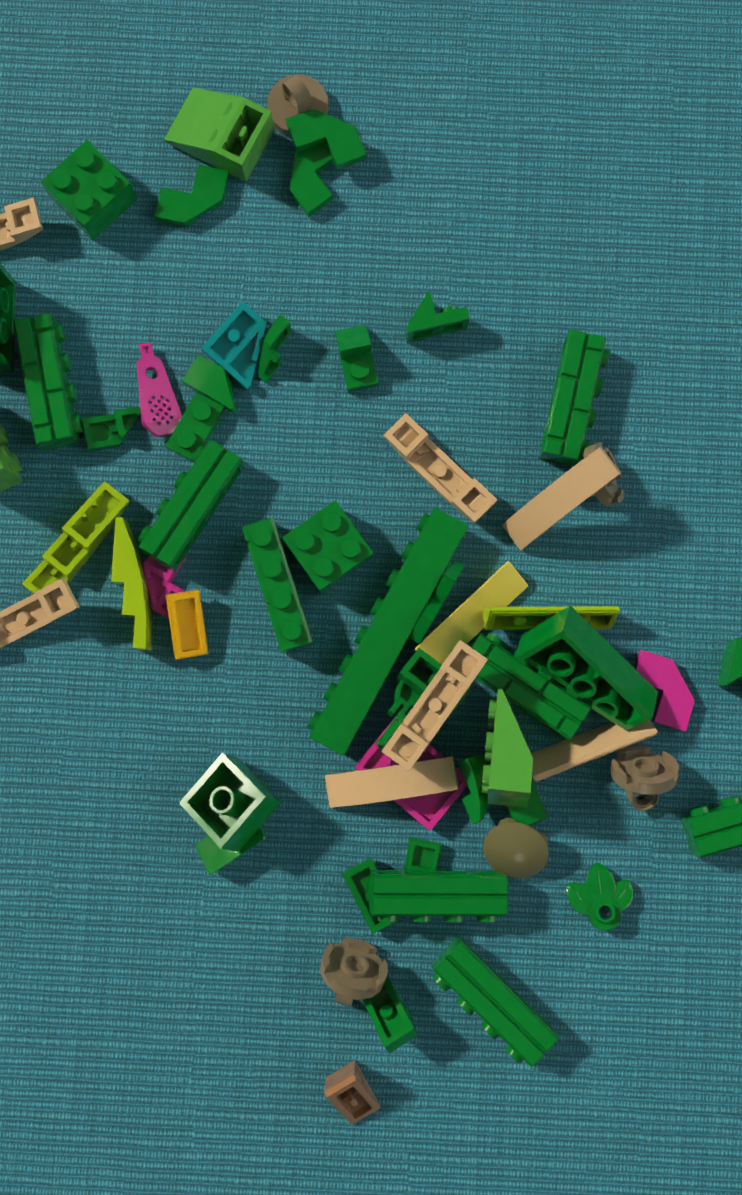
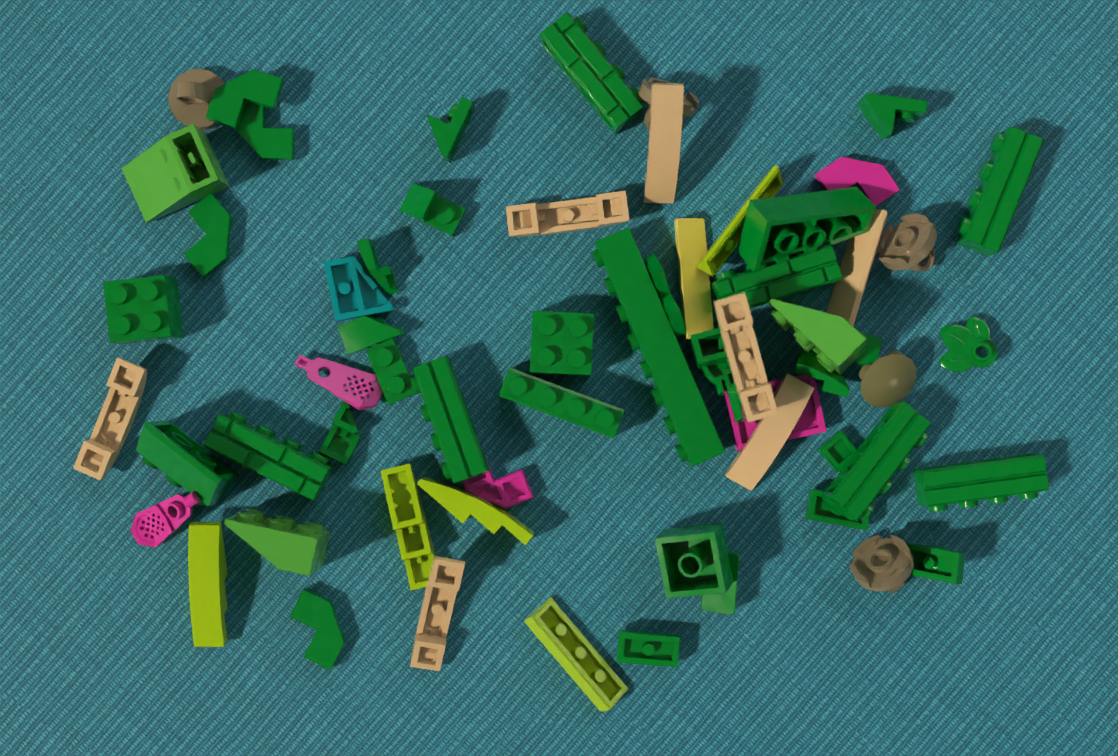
camera: 50 degrees left, 5 degrees up
(73, 768) = (576, 655): none -> lime slope
(125, 824) = (648, 648): none -> green plate
(187, 624) = (536, 491): yellow tile -> none
(351, 1093) = (963, 632): medium nougat slope -> none

